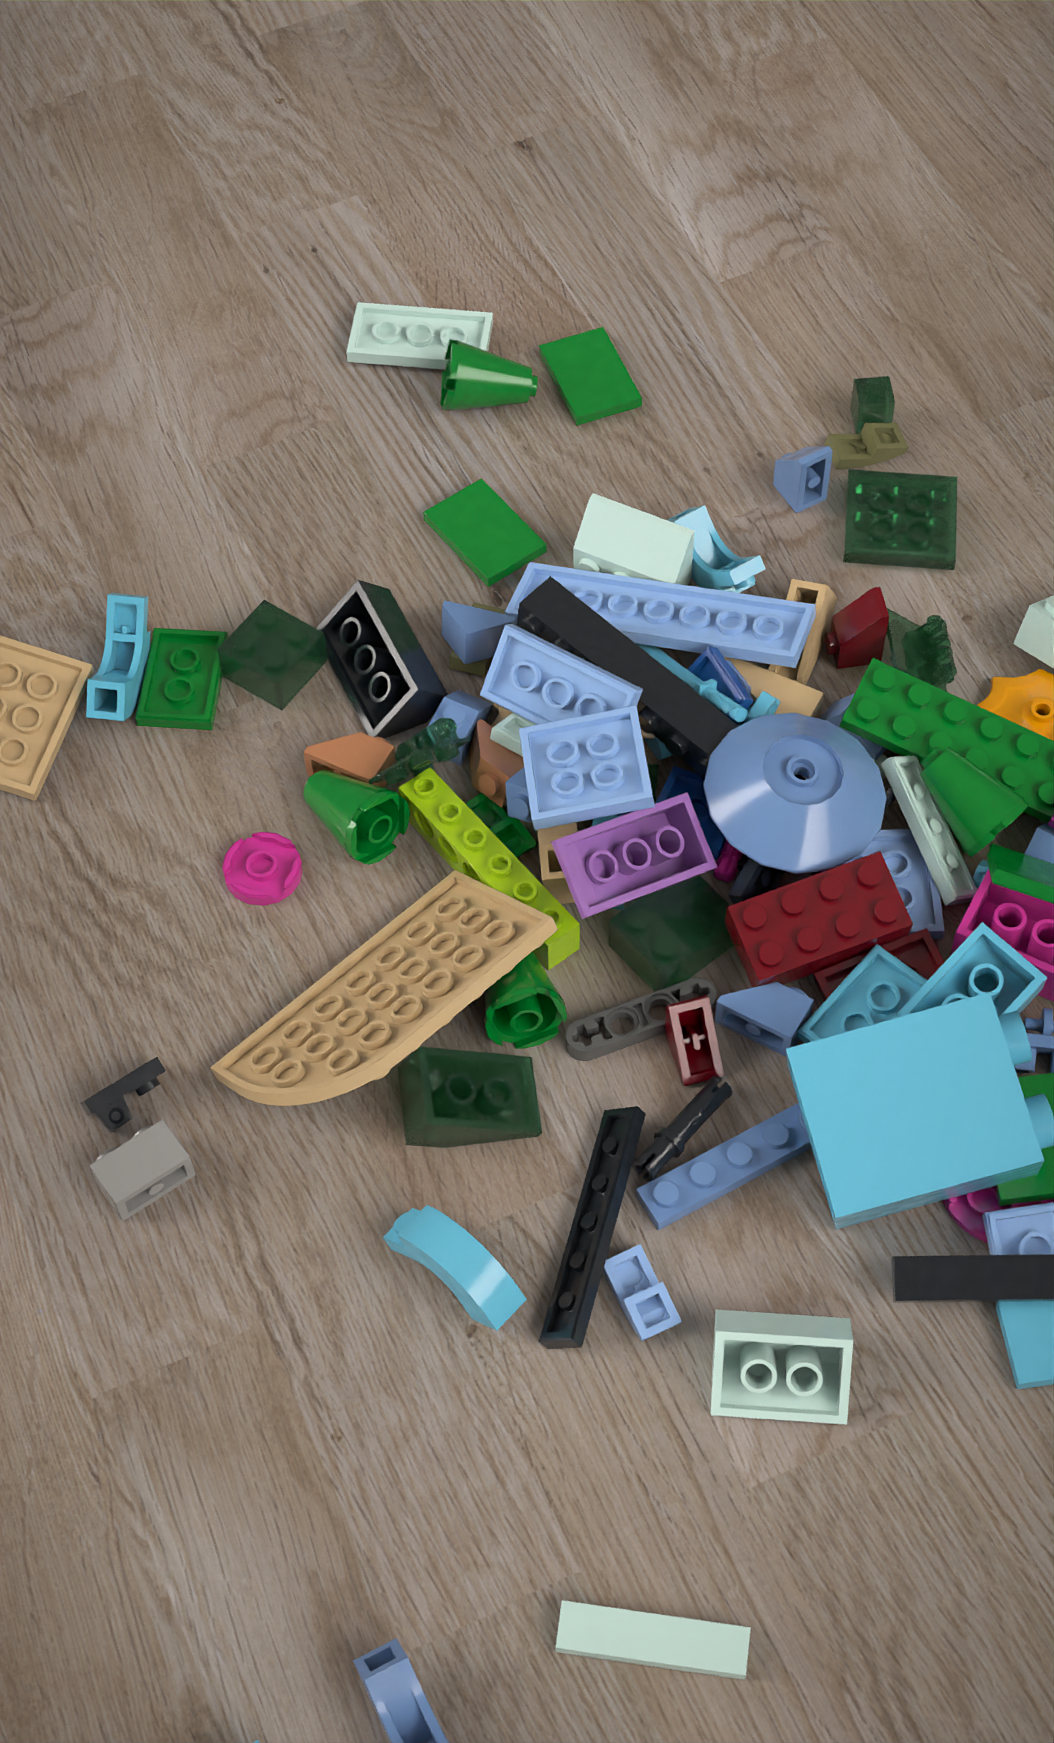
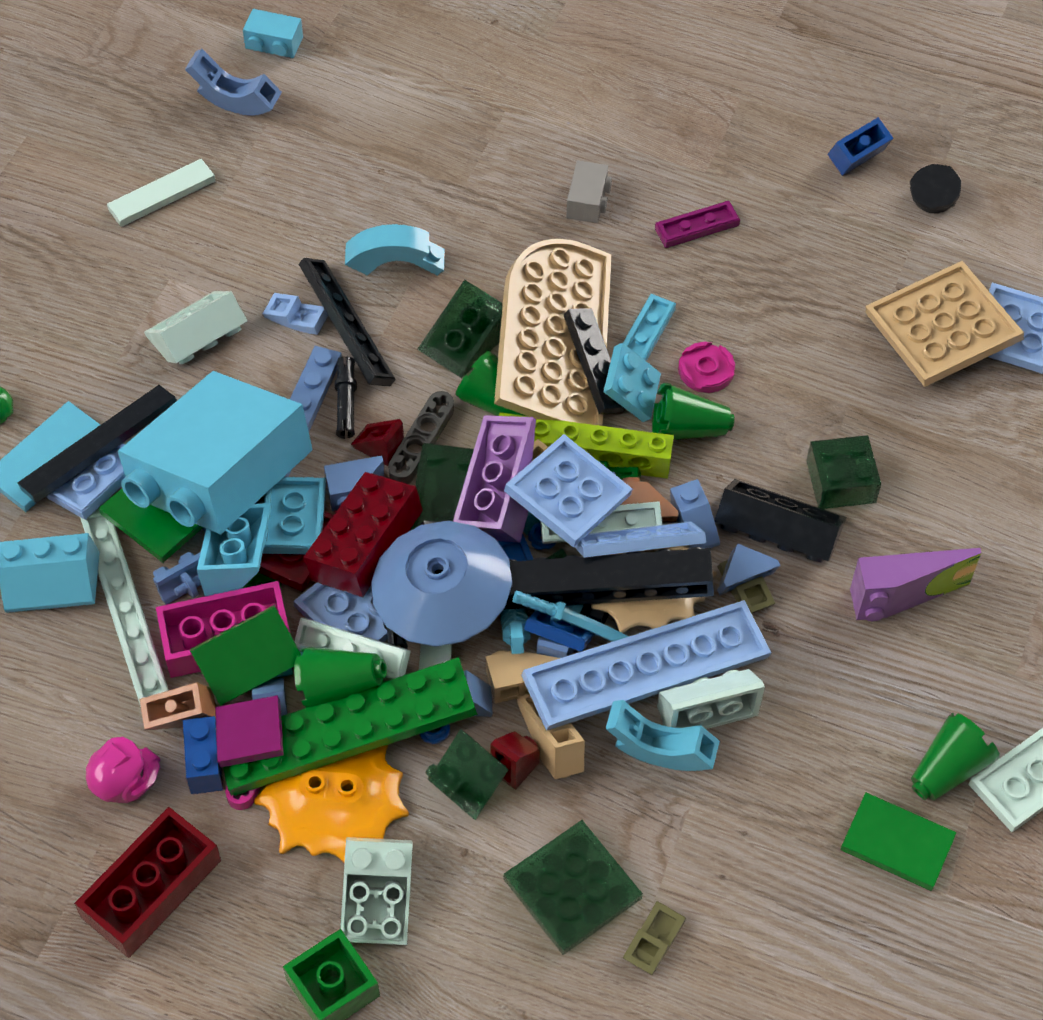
camera: 135 degrees right, 0 degrees up
(70, 1038) = (697, 224): none -> magenta tile
(110, 1103) = (639, 214): black hinge -> none
(118, 683) = (908, 398): medium azure arch -> none
(181, 679) = (891, 435): green tile -> none
(292, 949) = (649, 325): none -> medium azure tile
(346, 513) = (901, 581): none -> medium lavender slope
(352, 756) = (721, 448): nougat slope -> none
(373, 883) = (632, 382): none -> medium azure plate
(378, 940) = (592, 356): none -> black plate
(418, 753) = (679, 455): clear green hinge -> none
(485, 532) = (826, 660): green tile -> none
(804, 476) = (667, 856): medium blue slope -> none
(872, 401) = (678, 967): clear green brick -> none

